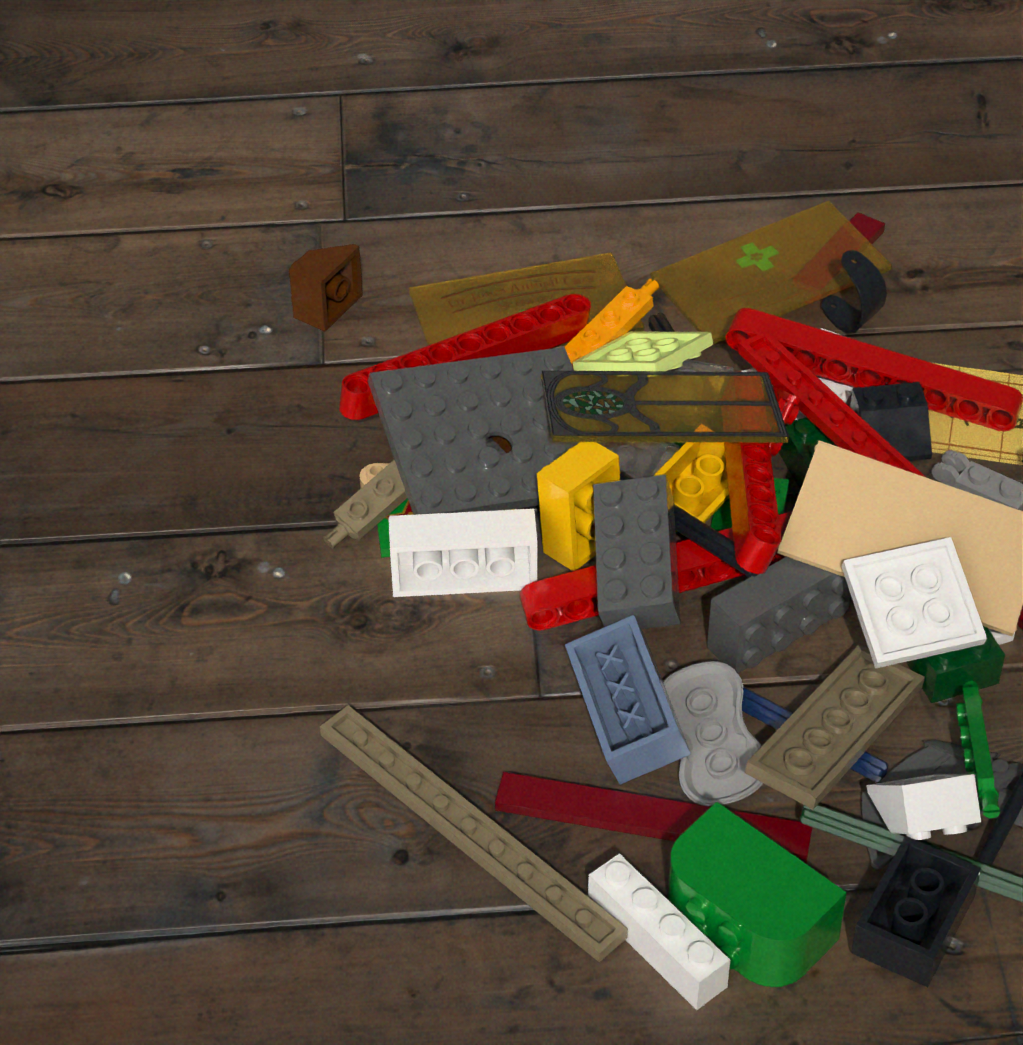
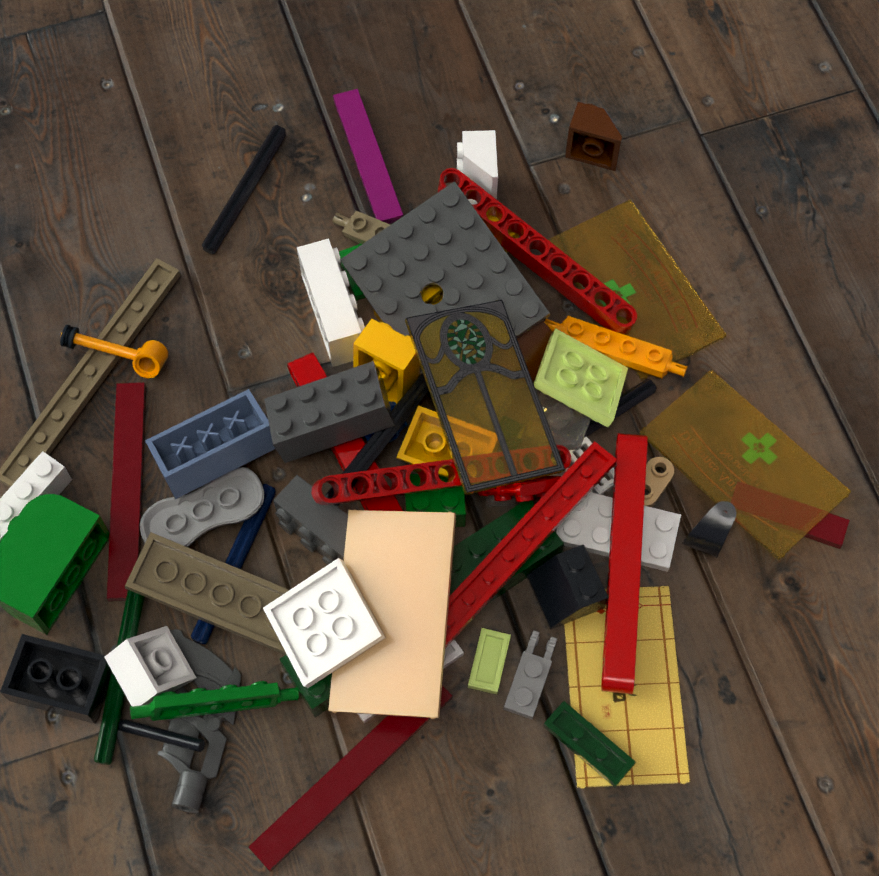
camera: 75 degrees right, 20 degrees up
(244, 499) = (367, 156): none -> magenta tile
(244, 627) = (243, 189): none -> black axle
(331, 356) = (479, 159): none -> white slope
(467, 755) = (141, 363): none -> light orange piece

